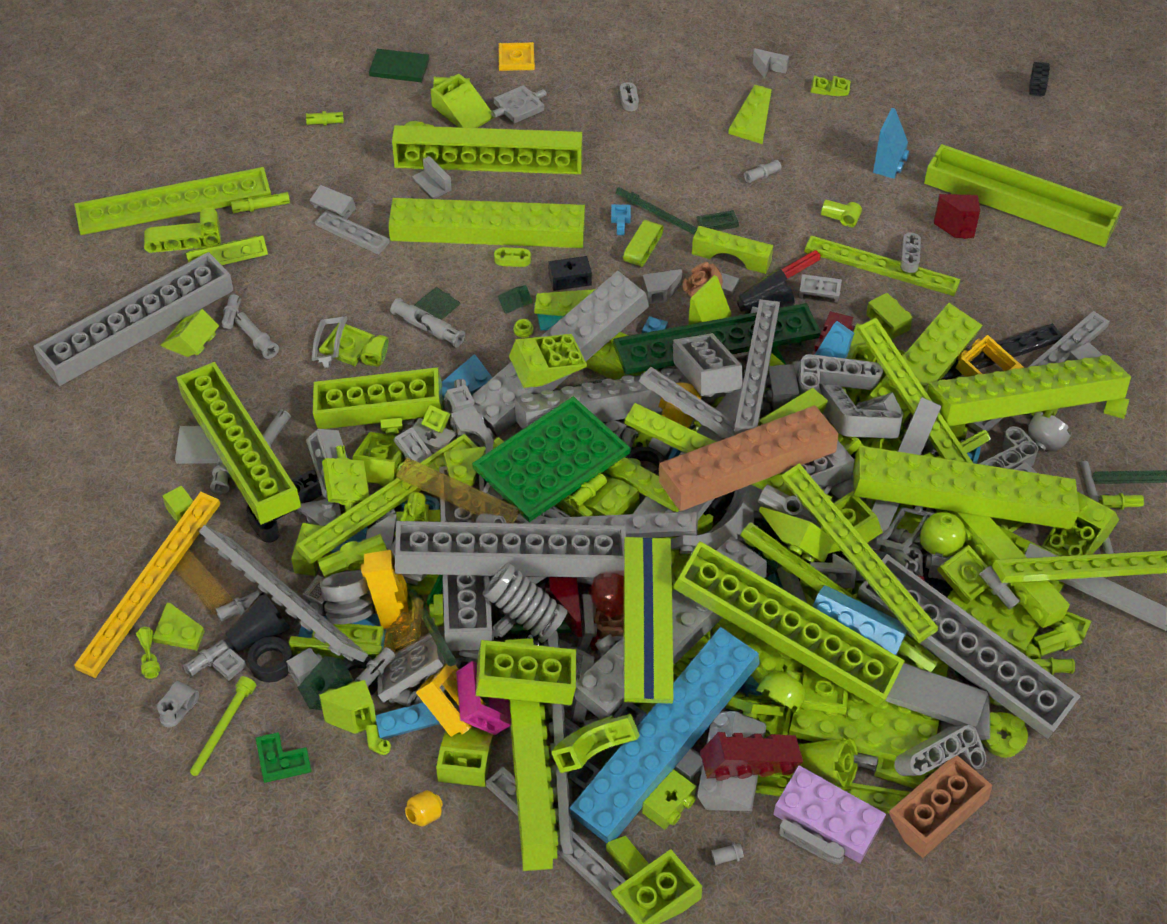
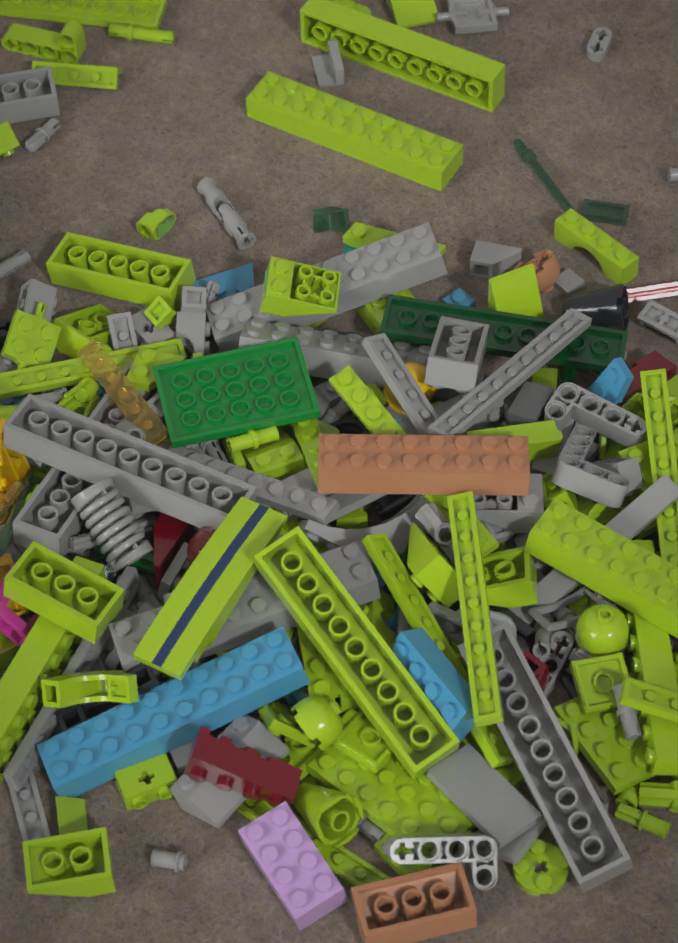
camera: 30 degrees right, 0 degrees up
(260, 339) = (52, 173): light grey pin -> none
(326, 360) = (102, 217): light grey sword -> none
(333, 201) = (212, 57): light grey hinge -> none
(350, 345) = (132, 205): lime tile -> none
(352, 232) = (214, 94): light grey tile -> none
(391, 426) = (121, 304): lime plate -> none
(438, 303) = (250, 198): clear green piece -> none
(512, 257) = (358, 174): lime beam -> none
(523, 328) = (320, 252): lime plate -> none
(570, 273) = (404, 211): black brick -> none
(620, 214) = (500, 169): dark azure plate -> none
(643, 243) = (505, 207): lime beam -> none
(812, 842) = (261, 887): light grey hinge -> none

